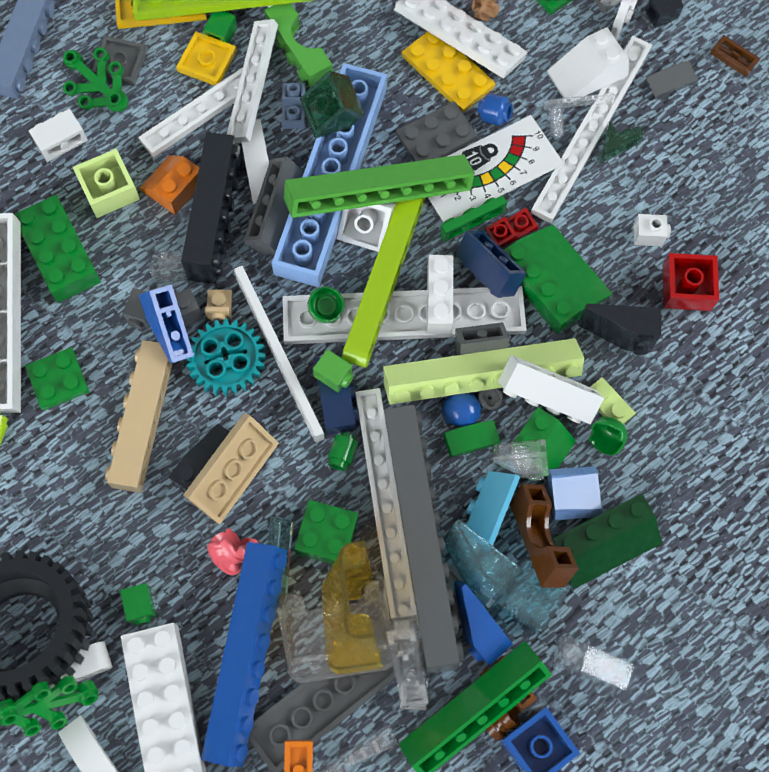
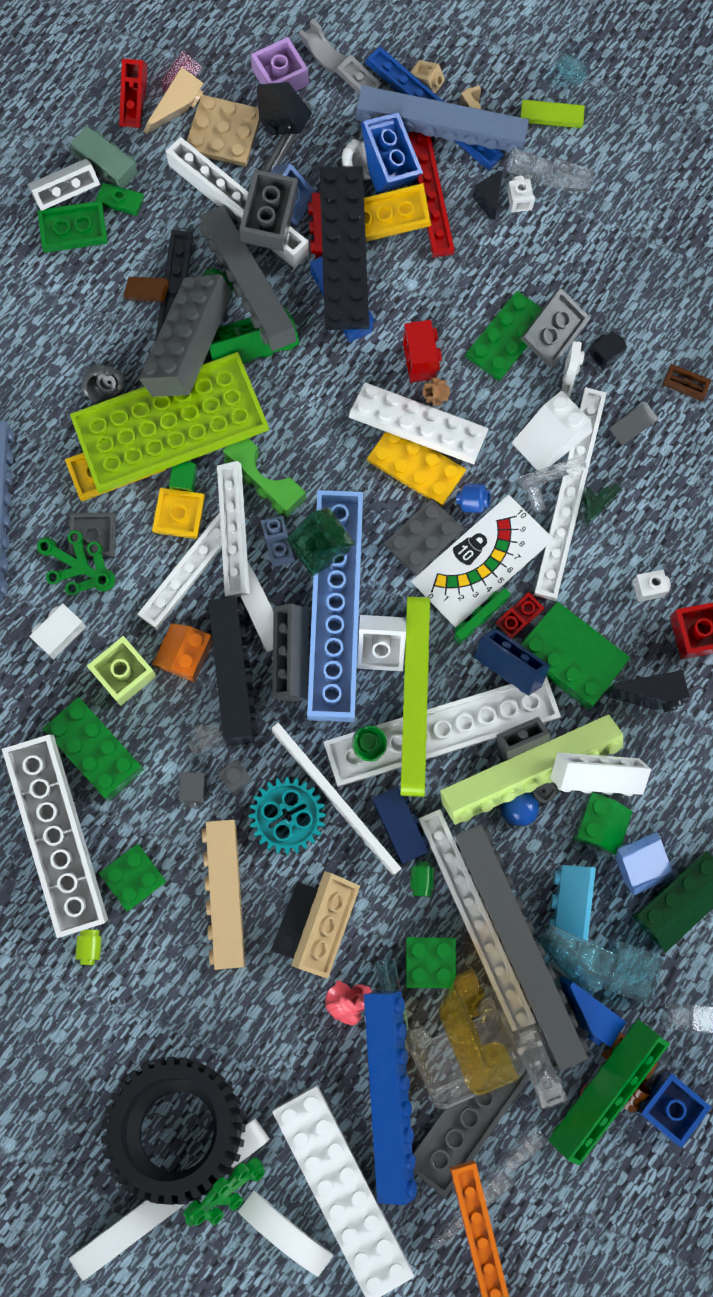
camera: 15 degrees left, 5 degrees up
(138, 604) = (276, 1075): green brick -> none
(166, 322) = (225, 800): blue slope -> none
(219, 305) = (265, 764): tan bracket -> none
(333, 371) = (396, 808): bright green brick -> none
(377, 185) = (387, 612): bright green brick -> none
(440, 294) = (473, 704): white brick -> none
(471, 438) = (537, 835): green slope -> none
(523, 458) = (592, 848): clear slope -> none
(531, 511) = (612, 894): reddish brown arch -> none
(608, 435) = (662, 800): green hair -> none
(612, 404) = (661, 771): yellowish green plate -> none

